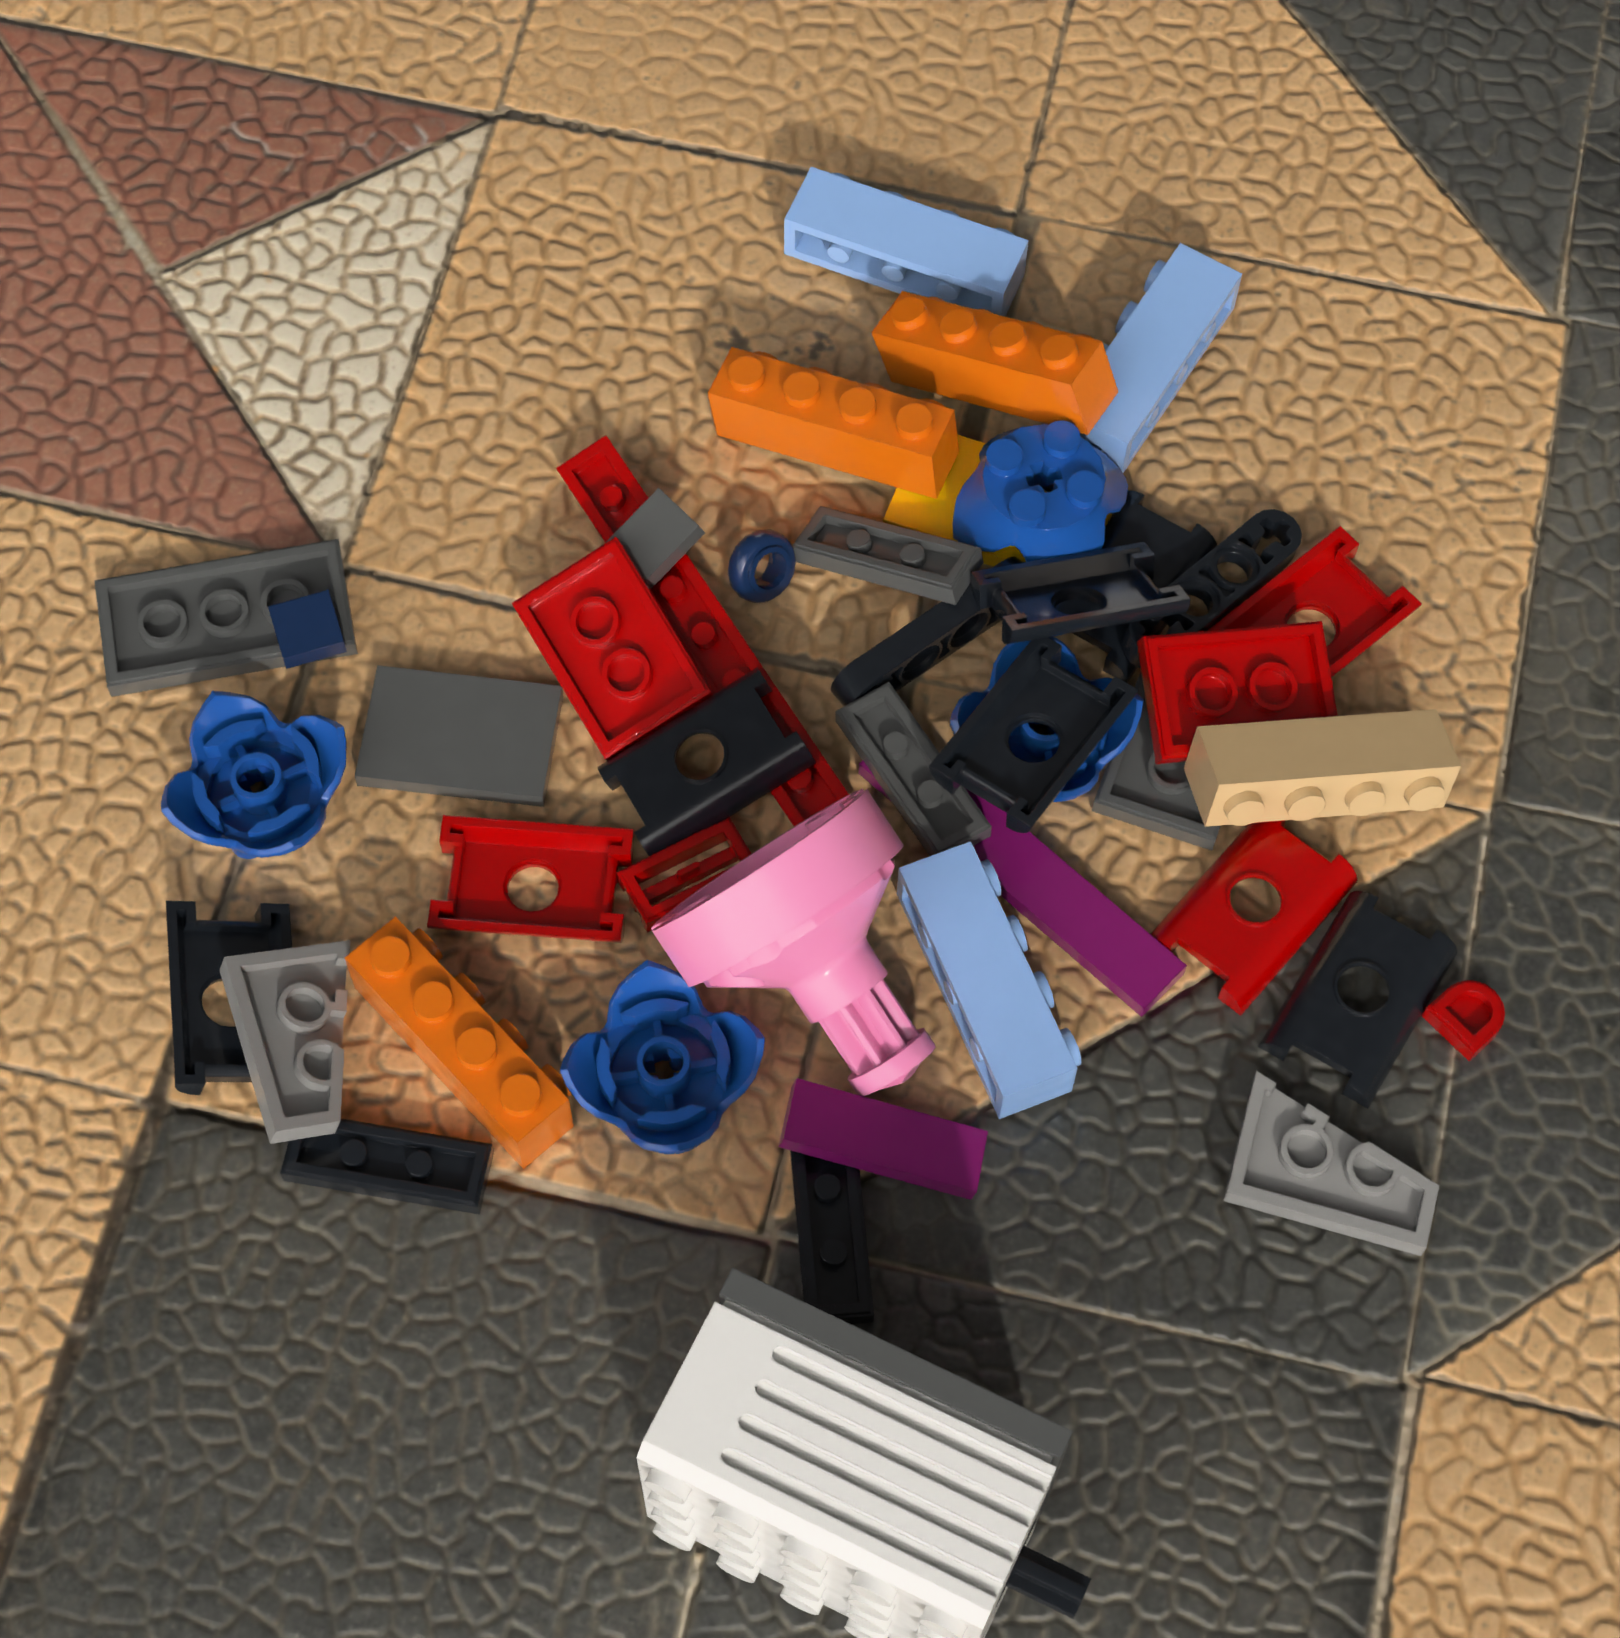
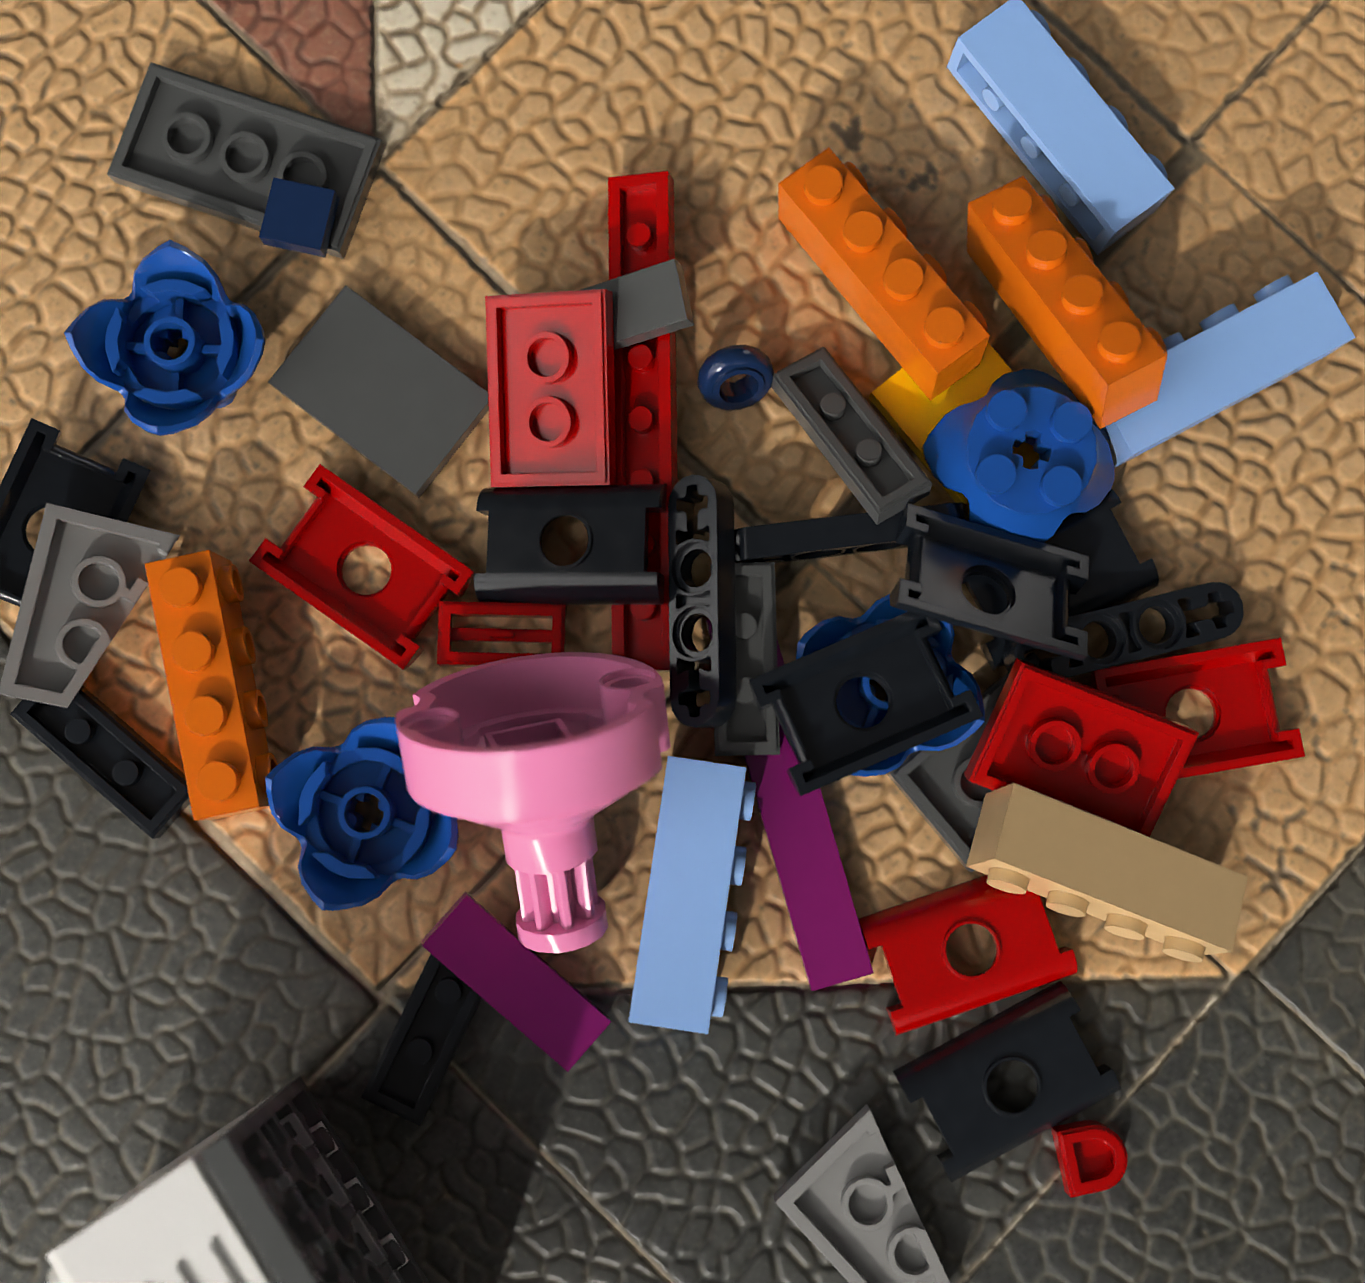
camera: 25 degrees right, 20 degrees up
(853, 734) = (711, 600): none -> black beam

